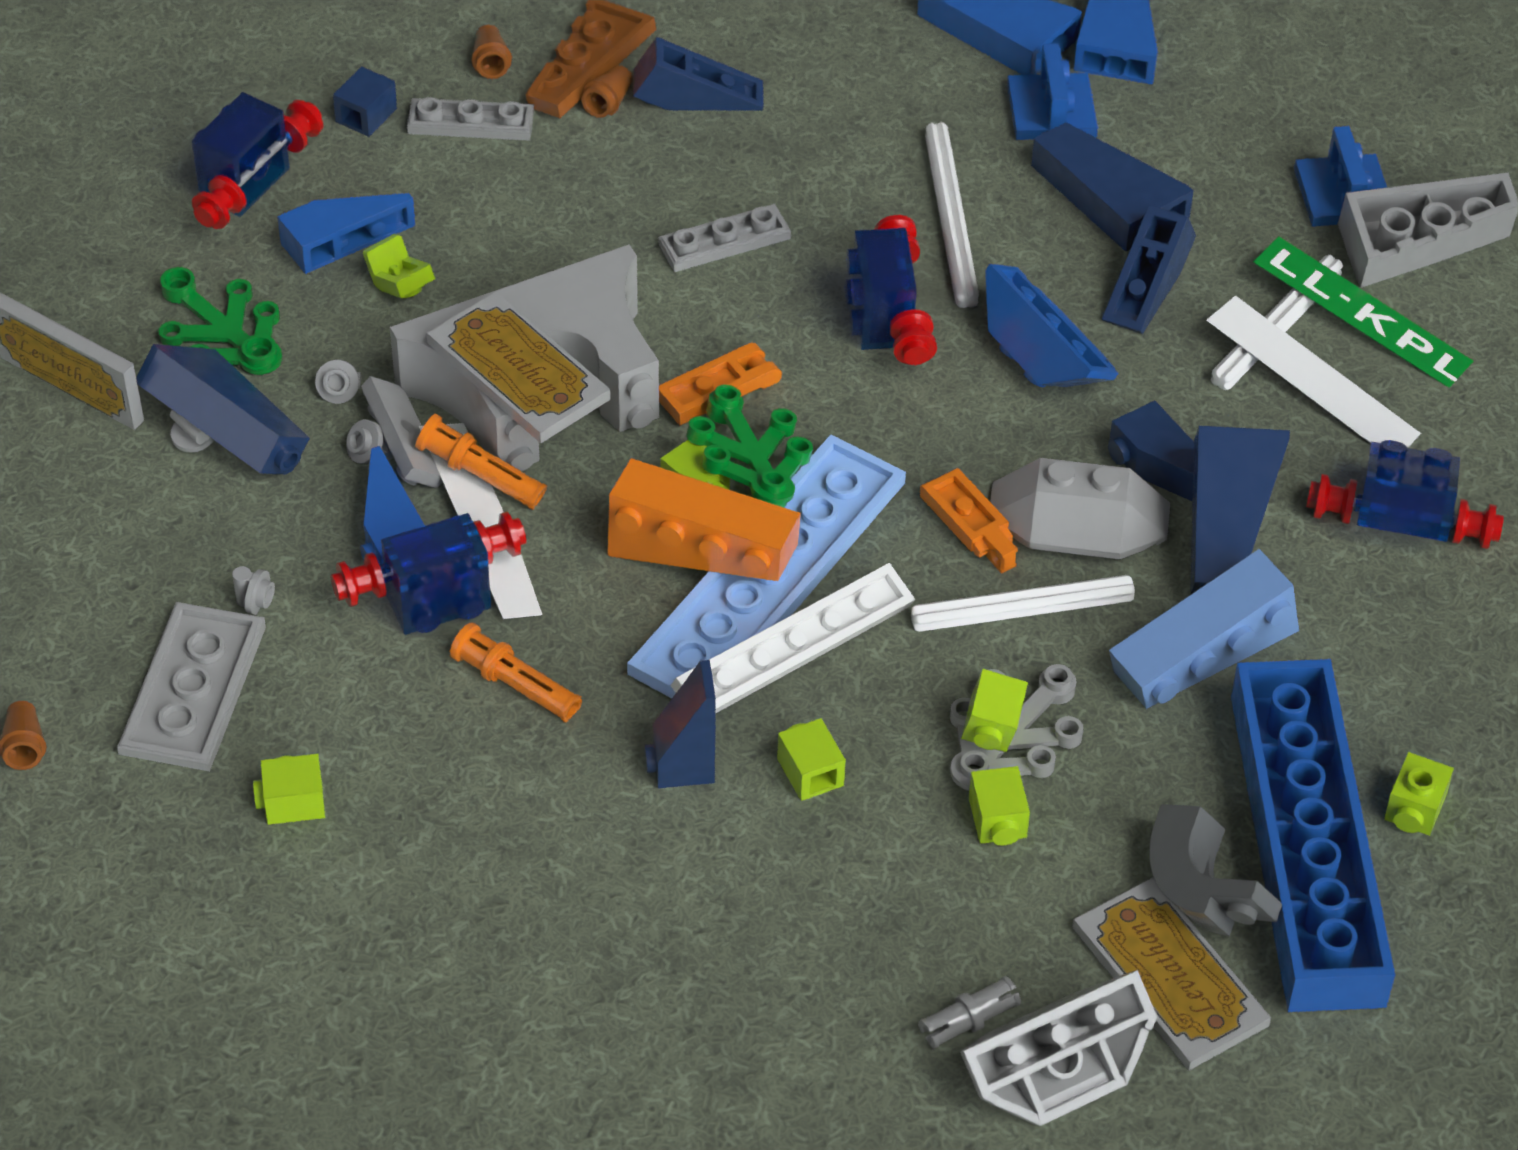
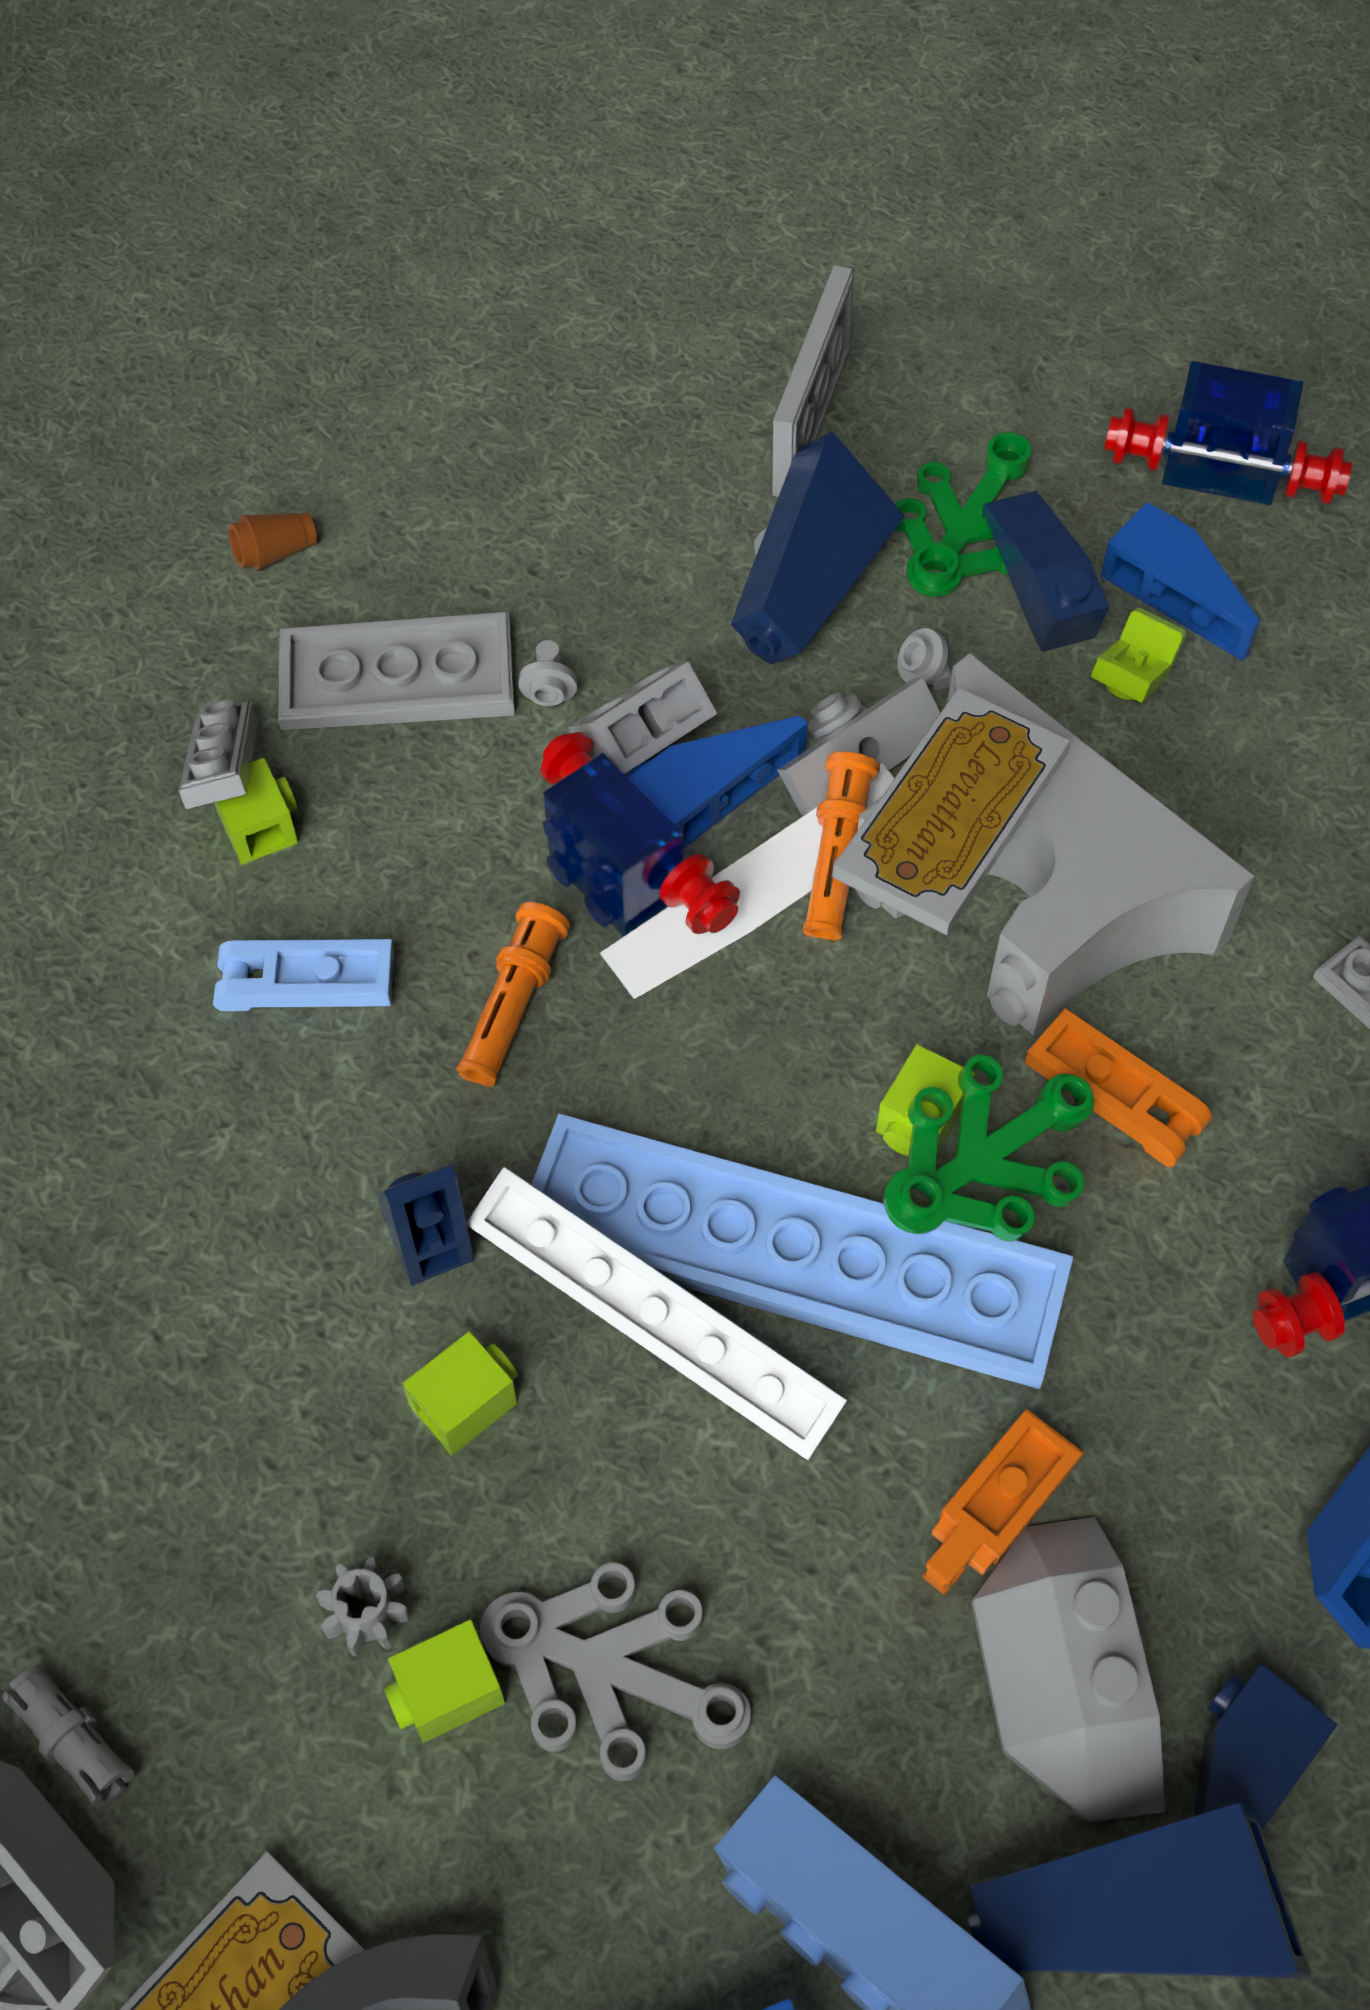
camera: 75 degrees right, 10 degrees up
(243, 787) = (219, 753): none -> light grey tile
(303, 289) = (1047, 571): none -> dark blue slope
(324, 532) = (647, 716): none -> light grey brick
(447, 787) = (304, 973): none -> light blue plate
(697, 525) = (798, 1124): orange wedge -> none
(936, 838) = (374, 1620): none -> light grey gear
(994, 711) = (591, 1624): lime brick -> none
(1022, 603) = (868, 1629): white axle -> none

